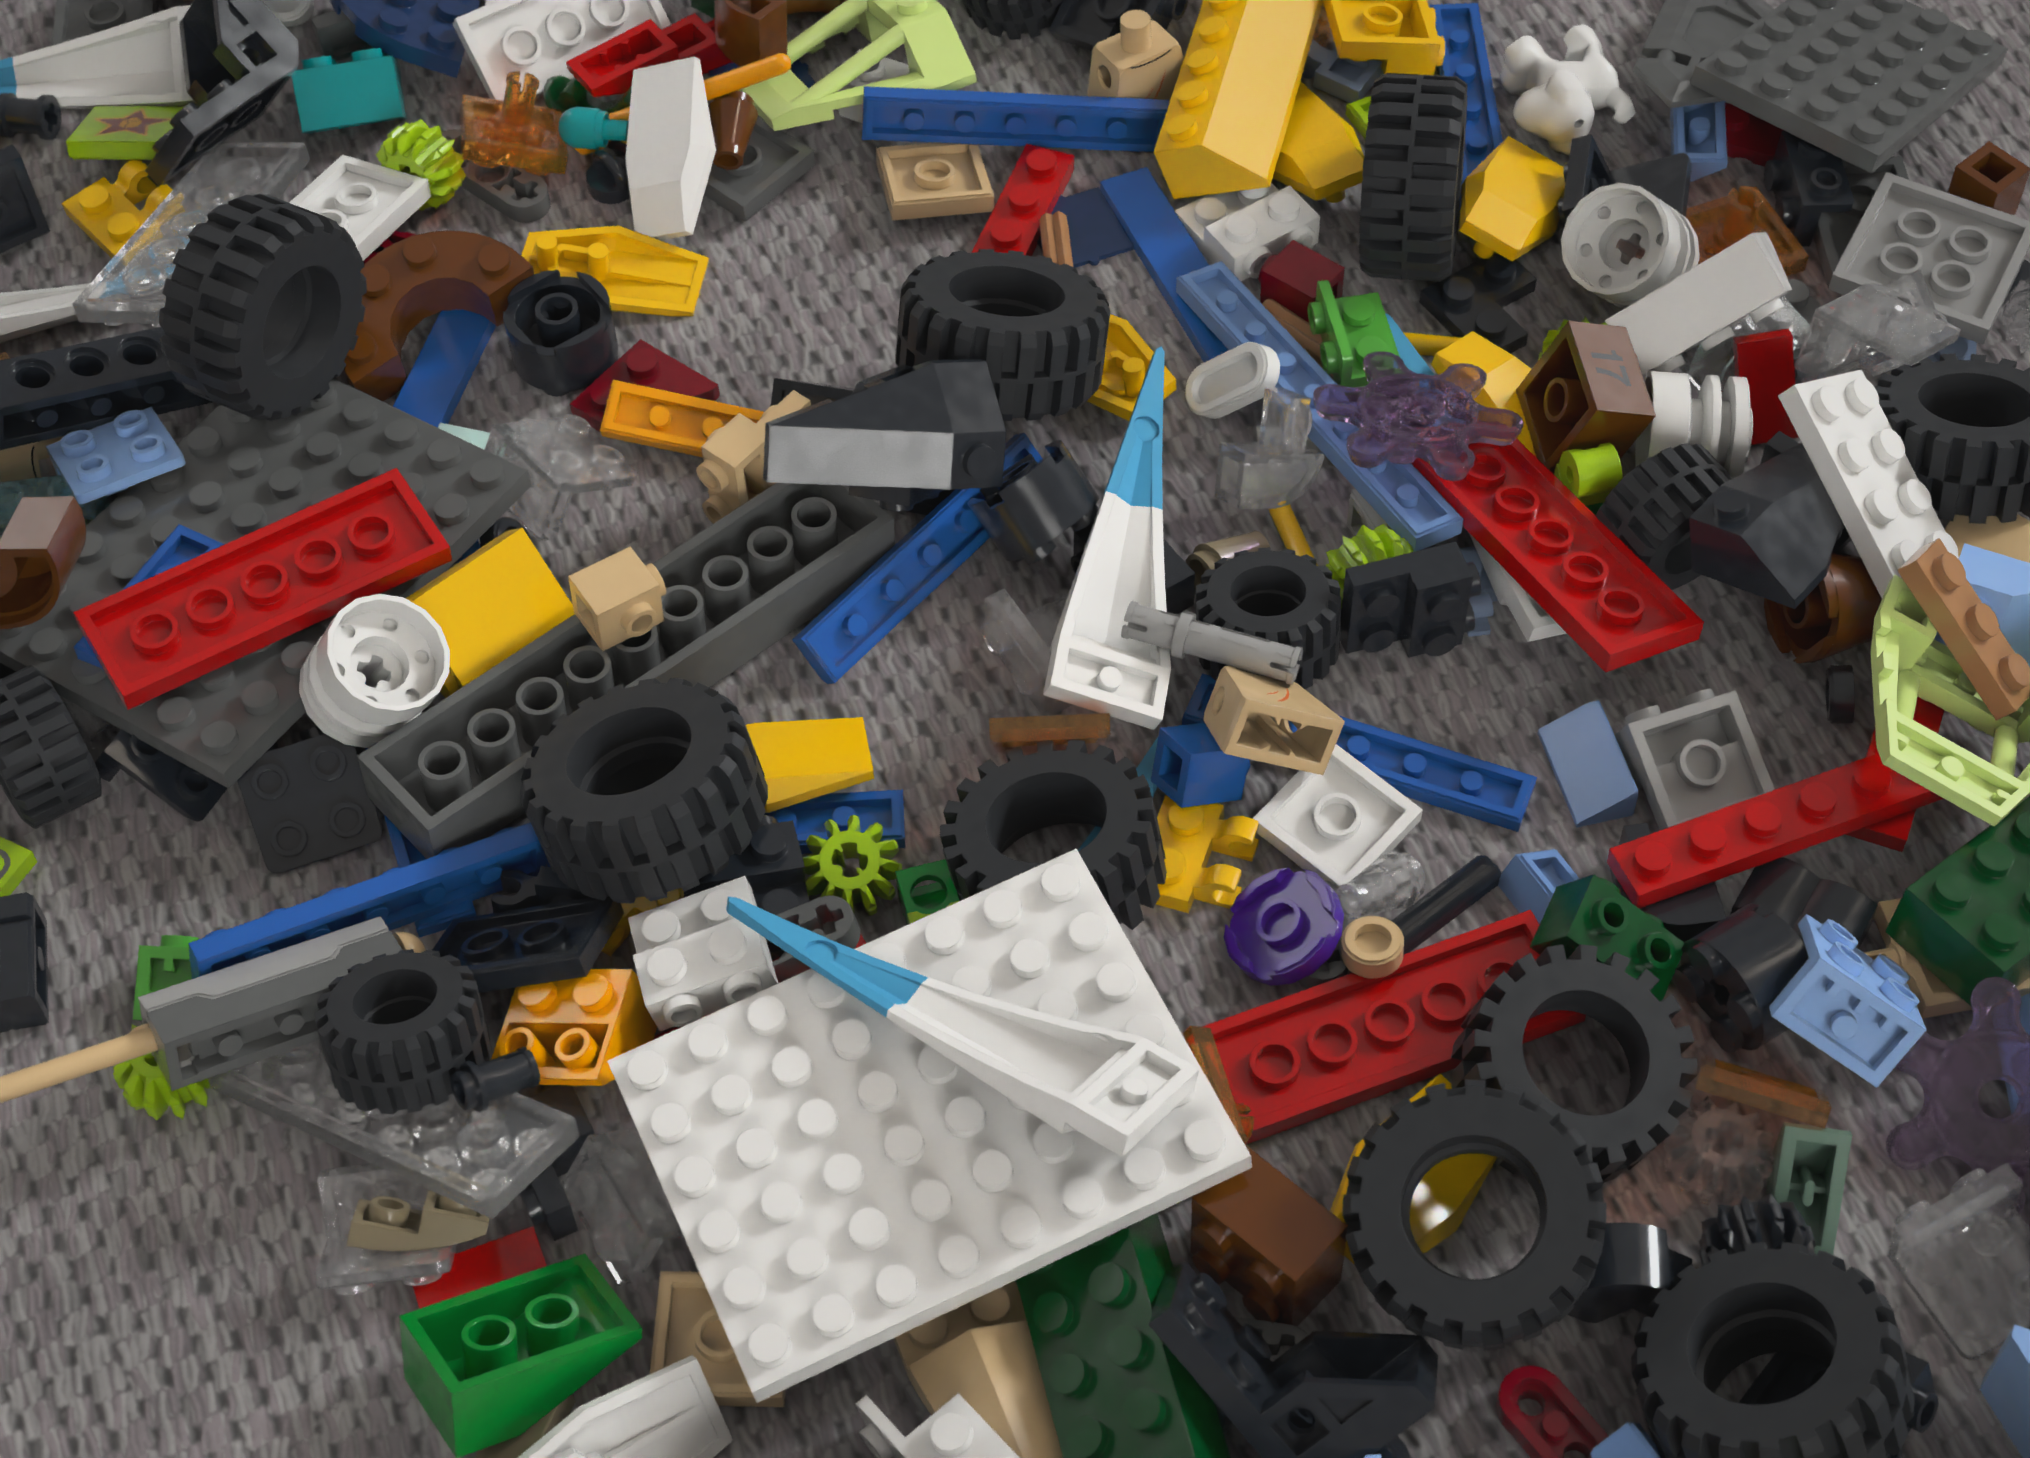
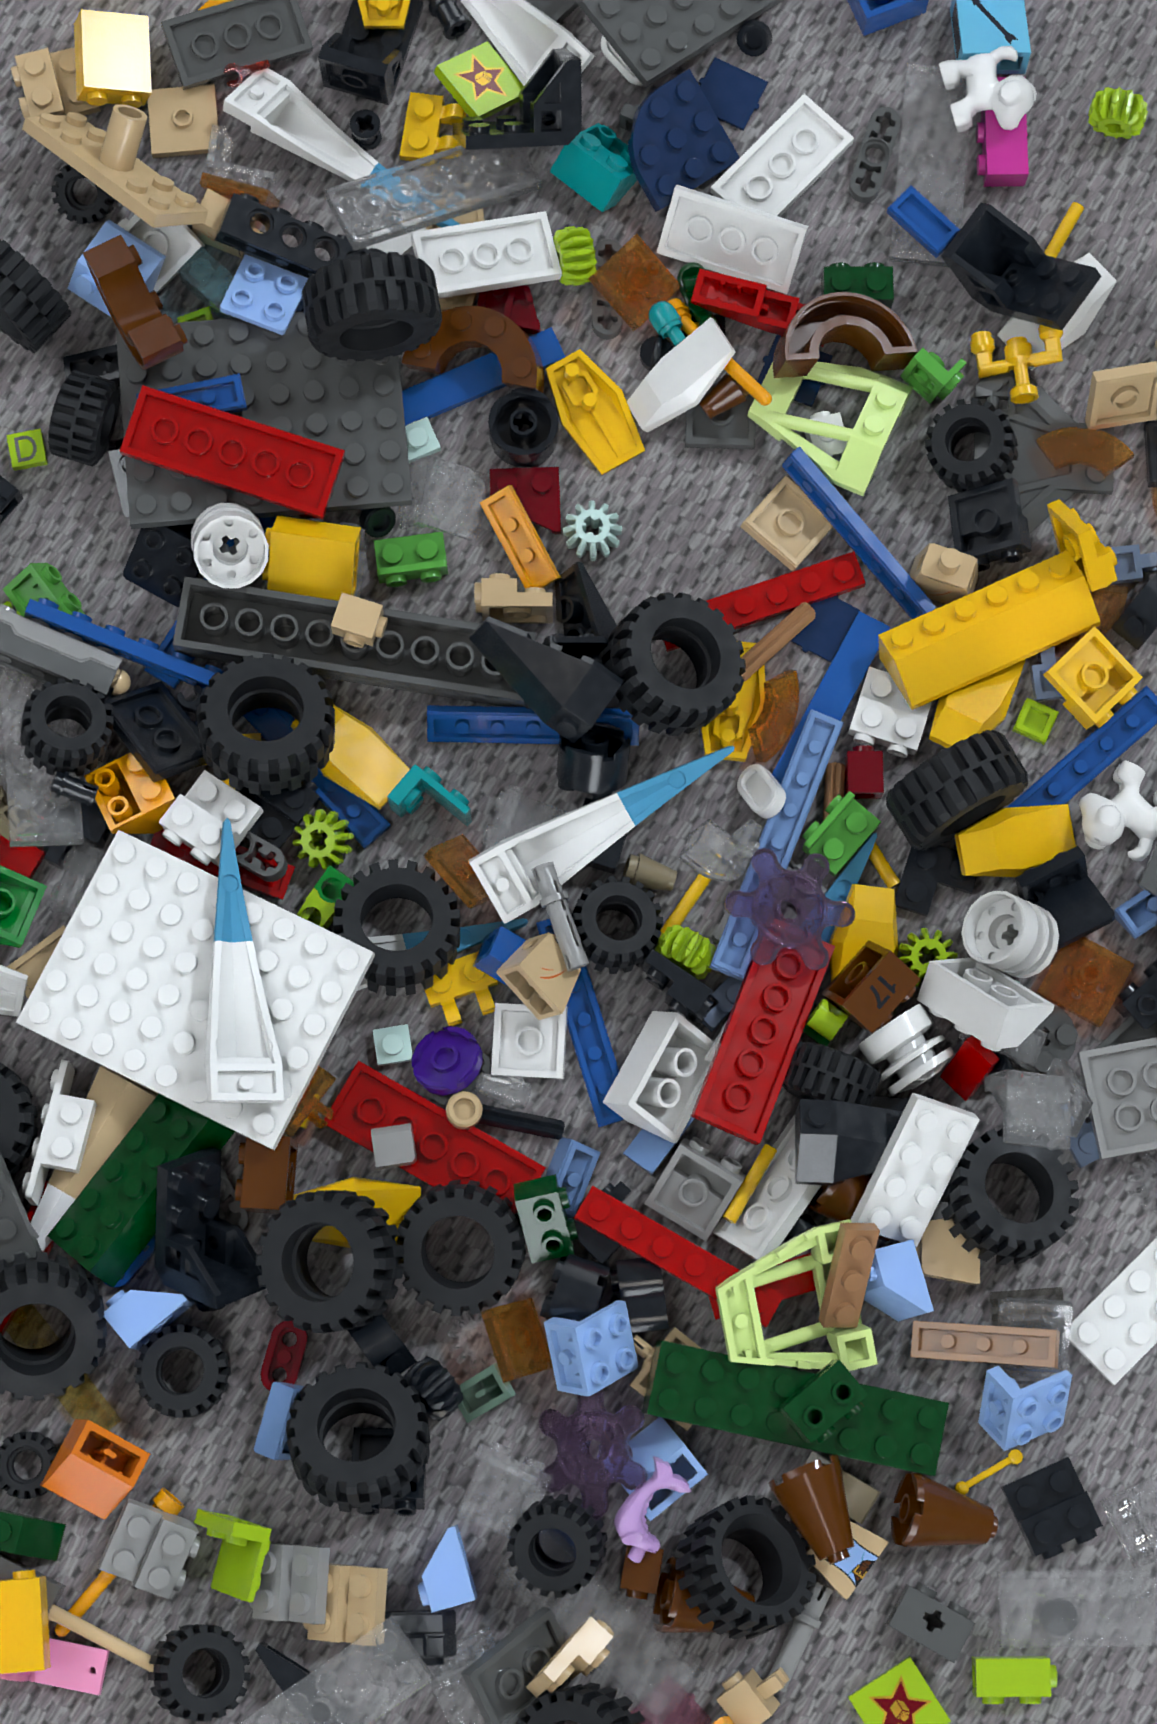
camera: 50 degrees right, 25 degrees up
(48, 256) = (363, 120): none -> black bush
(595, 535) = (411, 558): none -> bright green bracket
(750, 351) = (588, 541): none -> light aqua gear
(919, 693) = (408, 792): none -> teal bracket
(1150, 322) = (777, 717): none -> clear orange tile
(1202, 985) = (392, 1045): none -> light aqua plate
(1357, 1054) = (393, 1146): none -> light grey piece
(1512, 697) = (661, 1076): none -> white slope
(1725, 681) = (749, 1183): none -> yellow piece
(1784, 678) = (773, 1205): none -> white plate

